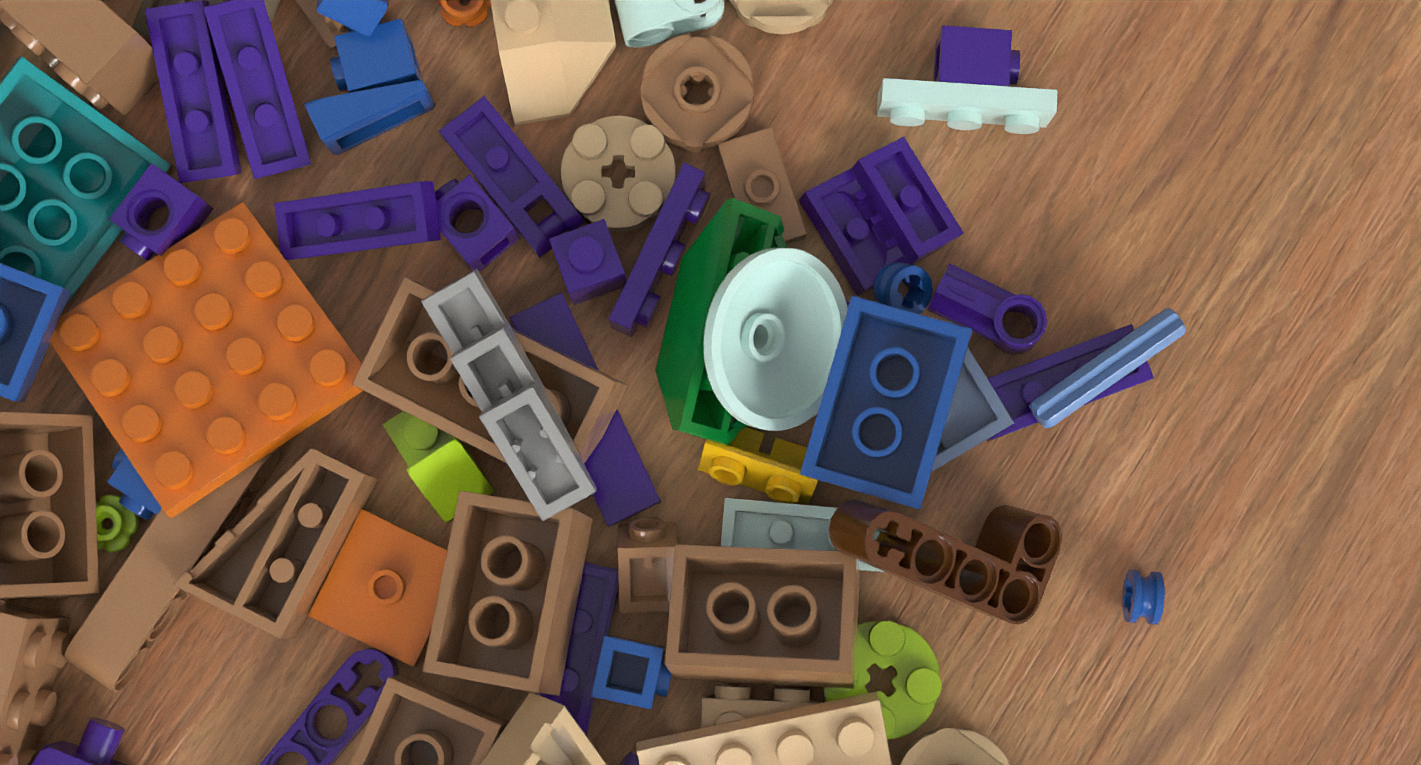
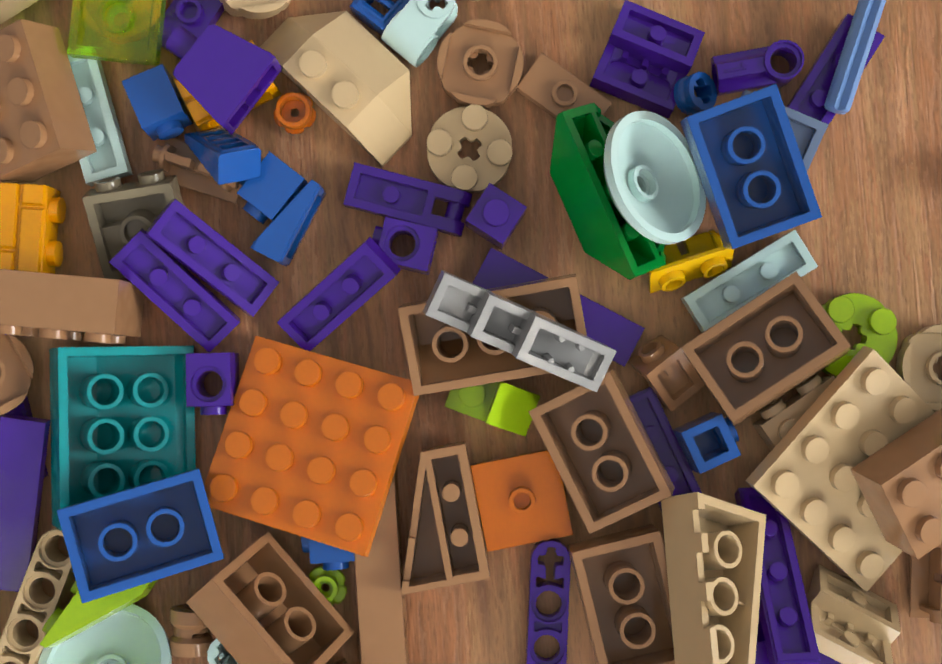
camera: 30 degrees left, 5 degrees up
(660, 252) = (533, 177): dark purple plate -> none
(996, 577) = (879, 224): reddish brown beam -> none

